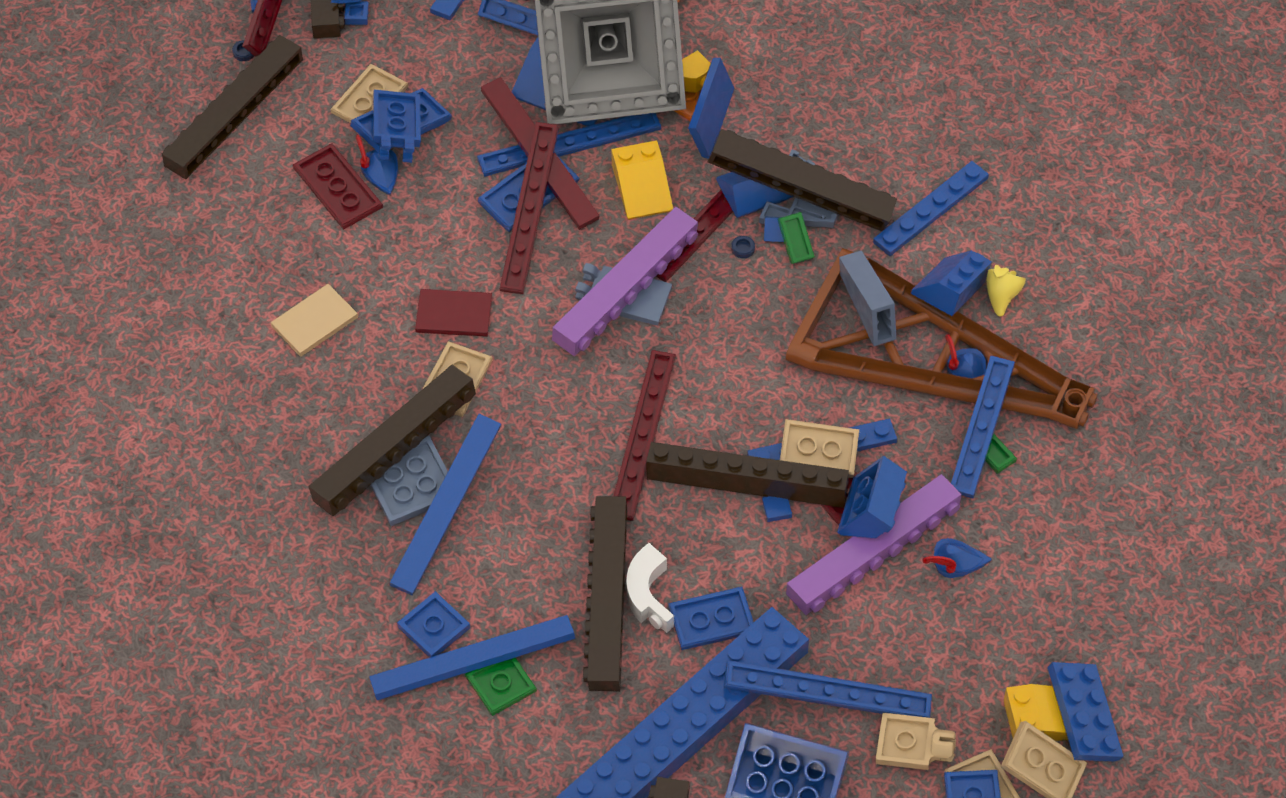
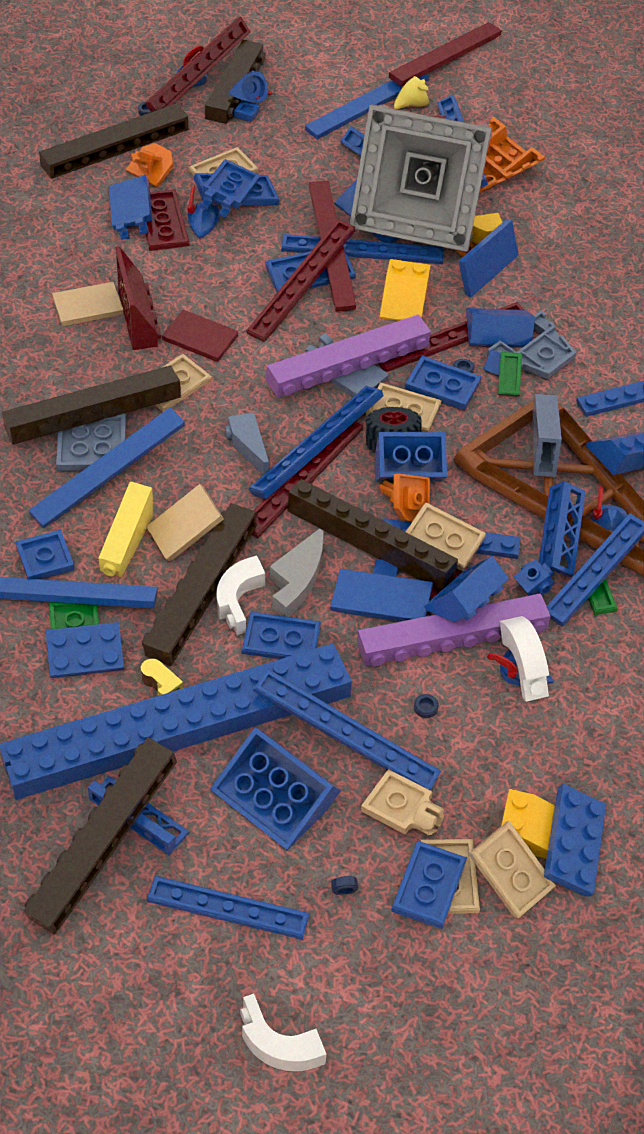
camera: 20 degrees right, 5 degrees down
(290, 121) = (152, 161): none -> orange piece
(295, 182) = (130, 205): none -> blue tile
(372, 305) = (136, 304): none -> dark red slope
(504, 566) = (127, 529): none -> light yellow slope
(530, 709) = (84, 650): none -> blue plate
(558, 535) = (185, 522): none -> tan tile
(569, 416) = (247, 440): none -> sand blue slope
(621, 709) = (159, 677): none -> light yellow leg
(639, 391) = (315, 442): none -> blue tile
(695, 545) = (296, 574): none -> light grey slope
(705, 317) = (396, 397): none -> tan tile
(714, 351) = (390, 420): none -> black wheel
(732, 273) = (443, 382): none -> blue plate
(747, 374) = (410, 454): none -> blue slope
(763, 416) = (407, 494): none -> orange piece
(787, 536) = (380, 596): none -> blue tile
(802, 180) = (534, 329): dark brown brick -> none
(884, 633) = (426, 706): none -> dark blue tile
(925, 395) = (557, 526): none -> blue fence
(931, 467) = (535, 578): none -> blue brick
(961, 542) = (528, 652): none -> white arch

